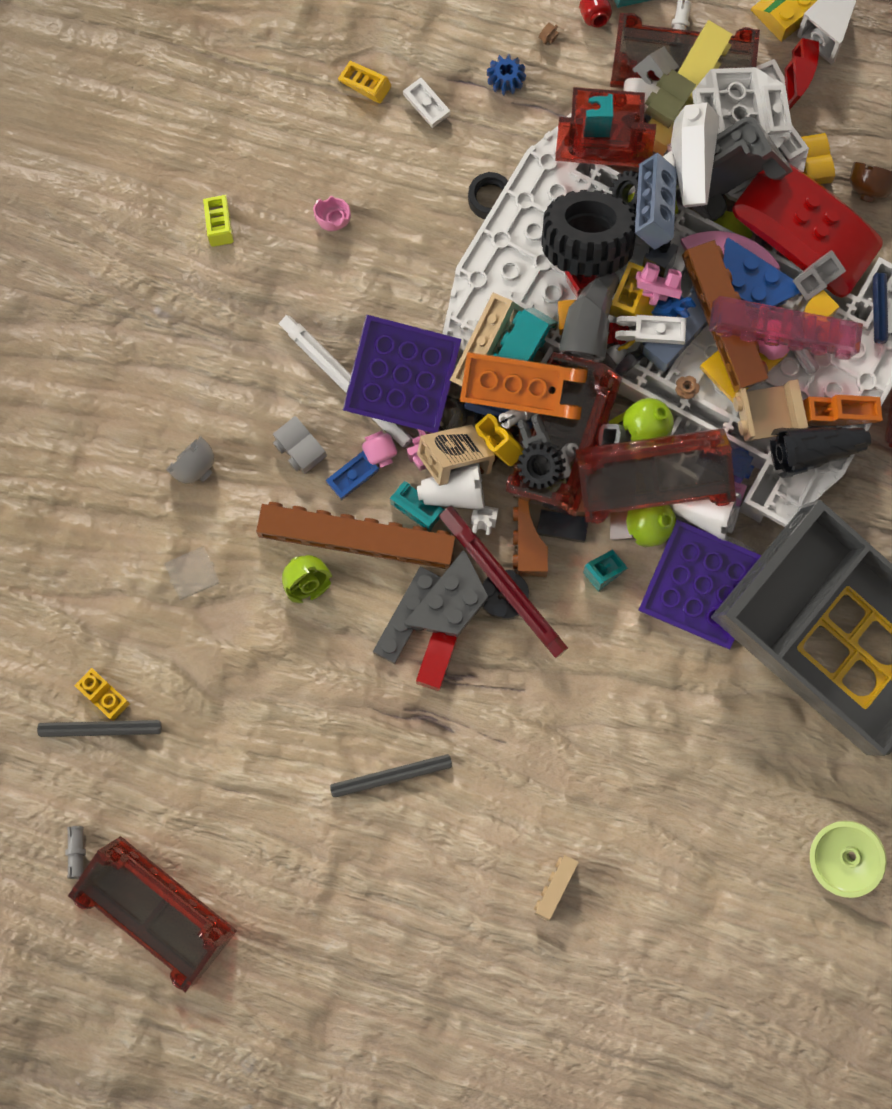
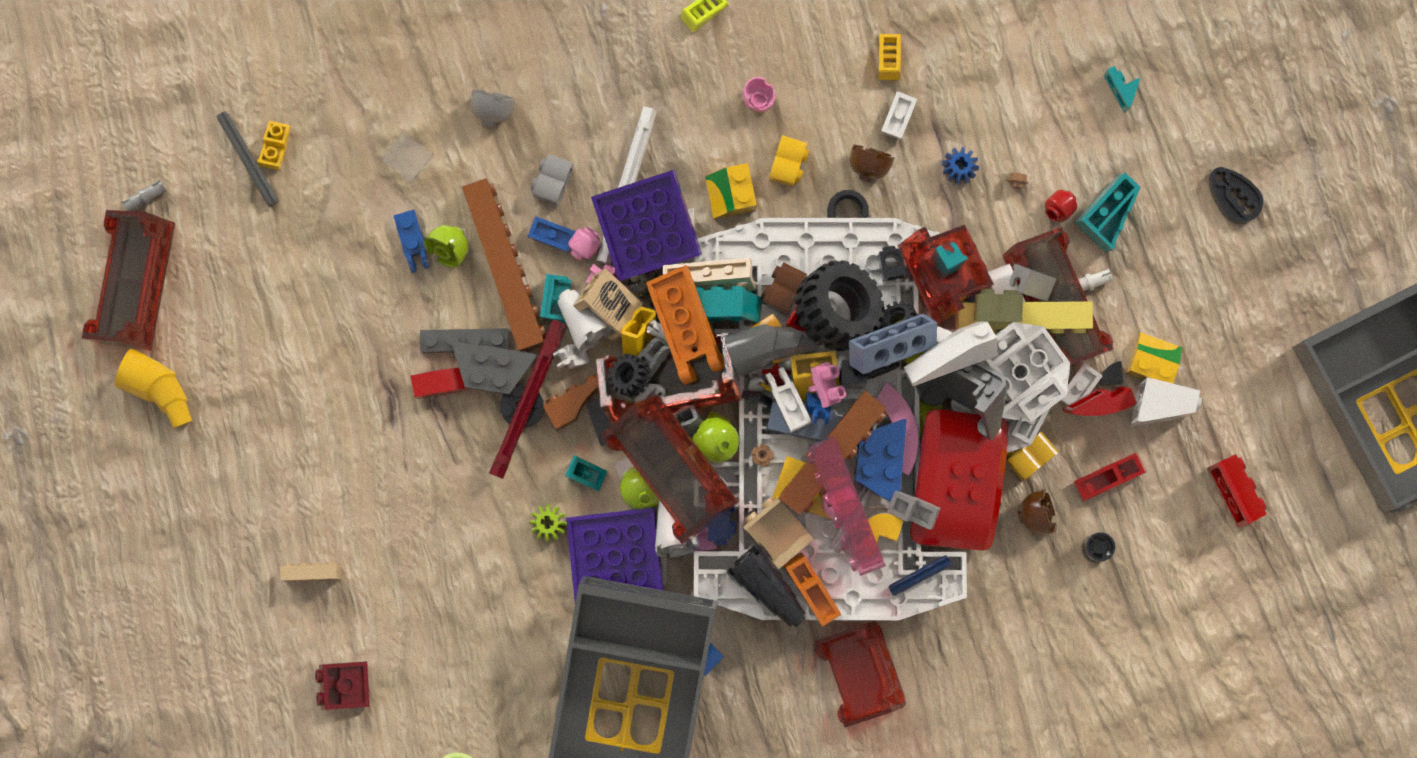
camera: 60 degrees right, 5 degrees up
(274, 942) = (155, 384): none -> yellow piece
(276, 611) = (411, 238): none -> blue hinge
(391, 775) = (331, 399): dark grey axle -> none
(409, 288) = (731, 191): none -> yellow slope
(411, 221) = (788, 161): none -> yellow brick
(457, 150) = (870, 162): none -> reddish brown cylinder
(538, 280) = (784, 288): none -> reddish brown brick
(573, 182) = (889, 273): none -> black brick
(637, 638) = (542, 528): none -> lime gear
(686, 917) = (342, 685): none -> dark red plate
(777, 50) = (1112, 374): none -> black tile
(871, 102) = (1110, 476): none -> red slope

